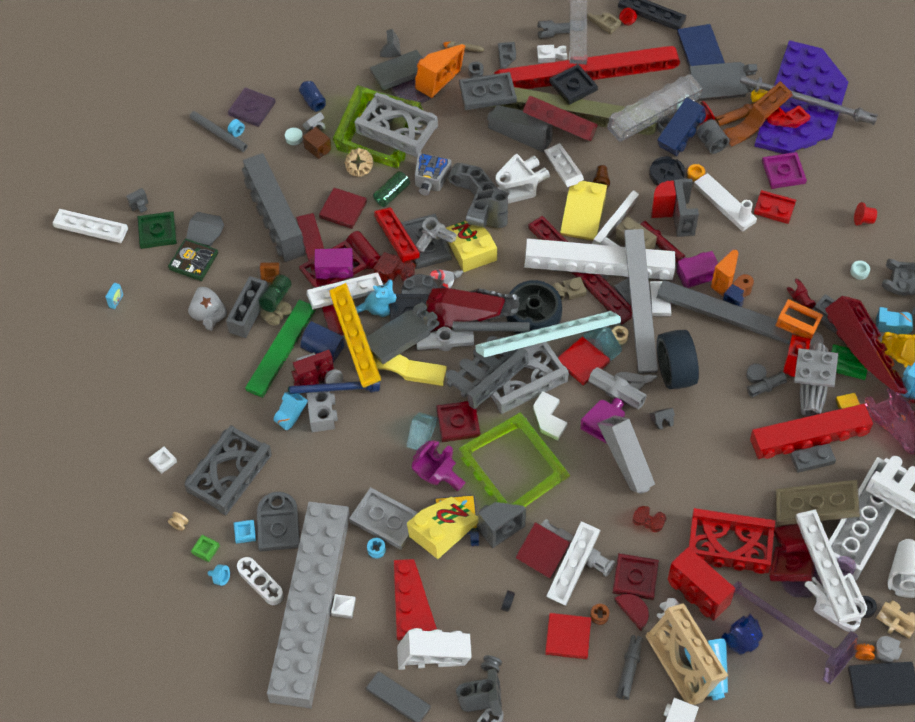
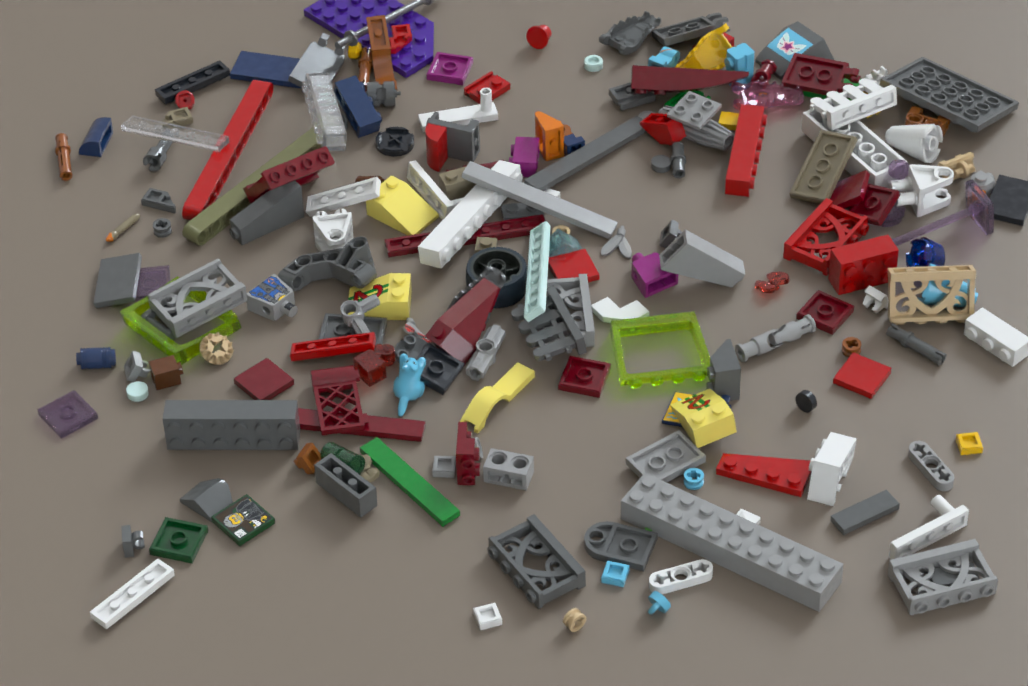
camera: 65 degrees left, 15 degrees down
(114, 295) = (248, 596): medium azure tile -> none
(205, 548) = (617, 610): bright green tile -> none
(207, 307) = (318, 521): light grey piece -> none
(218, 131) = (80, 450): dark grey piece -> none
(236, 128) = (91, 431): medium azure bush -> none
(290, 410) = (498, 489): medium azure leg -> none
(319, 339) = (426, 443): dark blue brick -> none
(332, 387) = (503, 423): dark blue piece -> none
(334, 263) = (343, 397): magenta brick -> none
(355, 335) = (444, 406): yellow tile -> none
(358, 288) = (378, 404): white plate -> none
(391, 189) = (270, 334): clear green pin -> none
(392, 48) = (79, 274): dark grey tile -> none
(402, 333) = (464, 376): dark grey tile -> none
(421, 430) = (581, 404): clear light blue slope -> none
(435, 466) = (632, 399): magenta piece -> none
(438, 69) = (155, 245): orange slope -> none
(481, 694) = (896, 443): dark grey tile -> none
(487, 91) = (207, 219): dark grey tile -> none
(491, 326) = (503, 305): dark grey piece -> none
(491, 663) = (865, 433): dark grey bush -> none
(543, 550) = (767, 358): dark red tile -> none
(548, 53) = (184, 171): white plate -> none
(573, 84) = (248, 157): black tile -> none
(573, 563) = (795, 339): white piece -> none
(617, 388) = (622, 252): light grey piece -> none
(634, 608) = (859, 323): dark red tile -> none
(677, 359) = (625, 194): black wheel -> none
(695, 172) = (411, 123): light orange tile -> none
(796, 326) = (631, 116): orange tile -> none
(801, 295) = (601, 105): dark red piece -> none
(813, 458) = (770, 161): dark grey piece -> none
(827, 567) = (895, 174): white tile -> none

